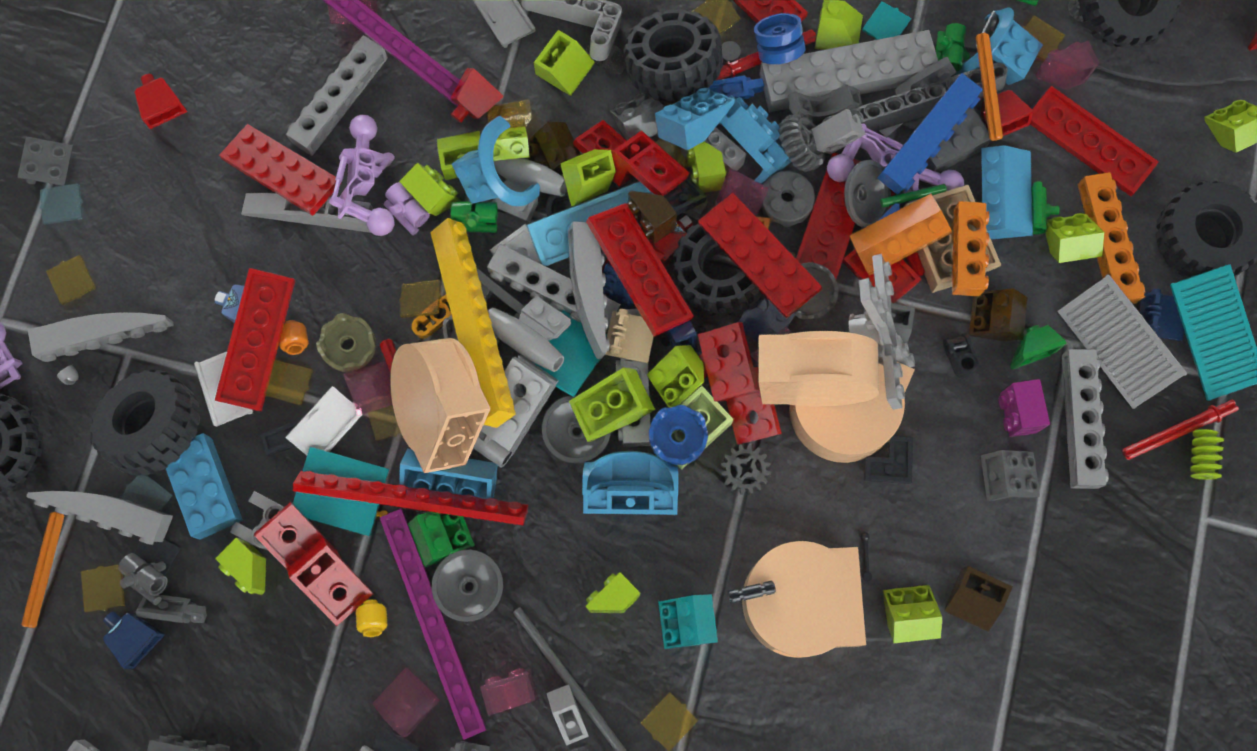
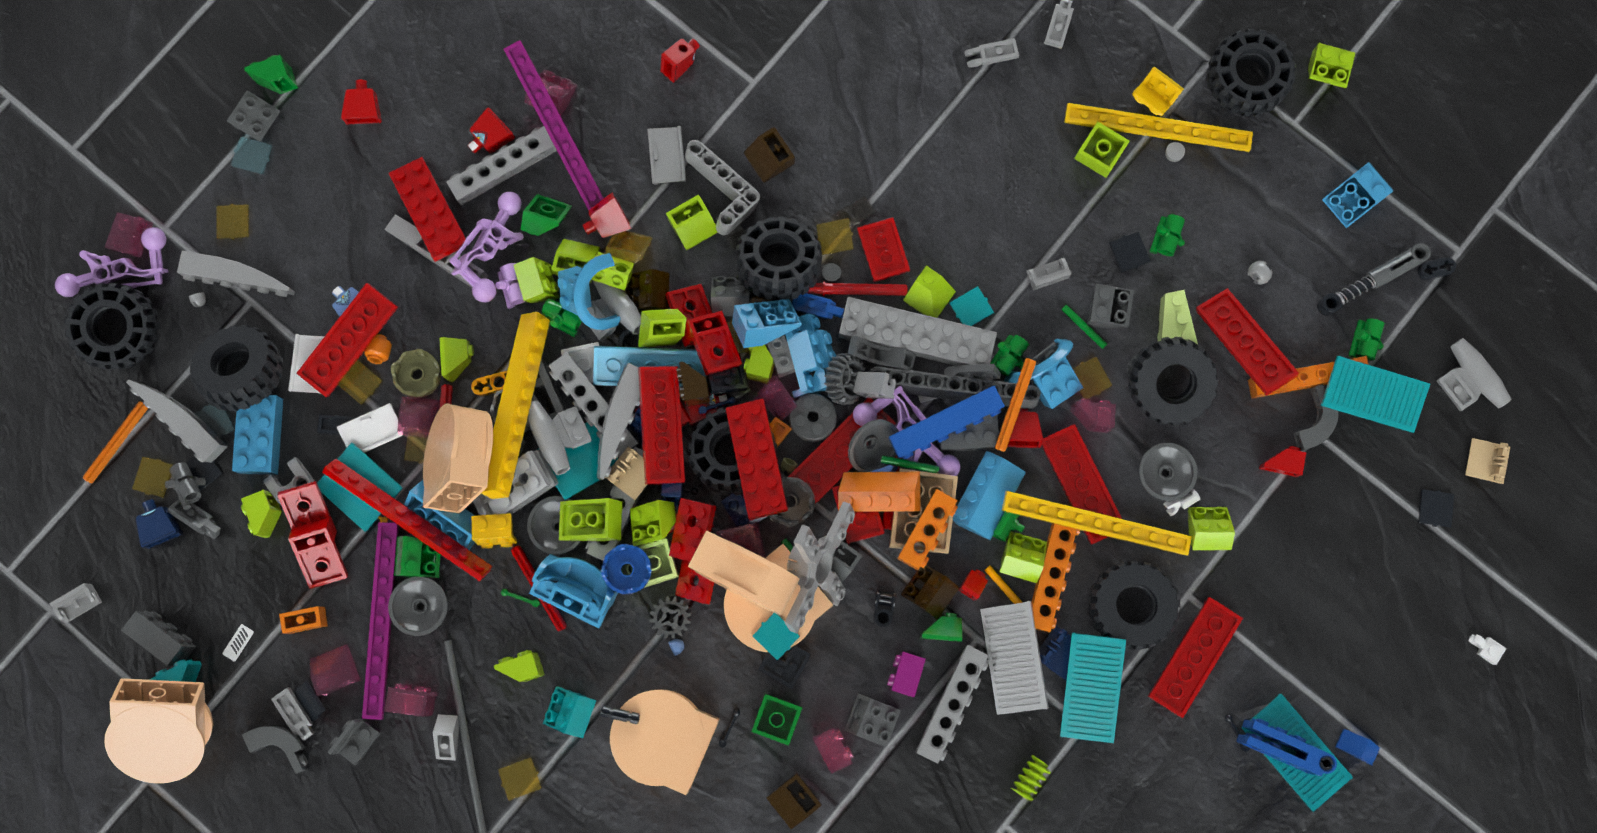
camera: 25 degrees right, 5 degrees up
(46, 109) = (273, 74): none -> green slope
(282, 724) = (238, 642): none -> white sticker
(308, 69) = (489, 133): none -> red torso
(346, 662) = (303, 620): none -> orange brick
(371, 618) = (337, 595): yellow head -> none
(381, 305) = (454, 357): none -> lime slope
(404, 125) = (543, 215): none -> green slope
(420, 298) = (489, 364): clear yellow piece -> none
(512, 465) = (493, 530): none -> yellow bracket
(577, 499) = (529, 572): none -> red axle
(592, 524) = (535, 603): none -> green hinge
(673, 237) = (731, 400): none -> dark blue hinge
(766, 497) = (676, 646): none -> medium blue hinge
(779, 38) = (869, 285): blue wheel -> none
(873, 429) = (775, 636): none -> teal piece
(912, 614) = (739, 788): lime slope -> none
(914, 520) = (777, 719): none -> green brick
(990, 523) = (832, 749): none -> clear pink slope
(1040, 288) = (973, 584): none -> red slope
(1065, 276) = (1002, 585): none -> light orange bar
(1129, 167) = (1096, 523): none -> yellow plate
(1174, 79) = (1180, 469): none -> dark grey dish
(1196, 107) = (1184, 502): none -> white plate
(1213, 414) = (1024, 748): red axle -> none

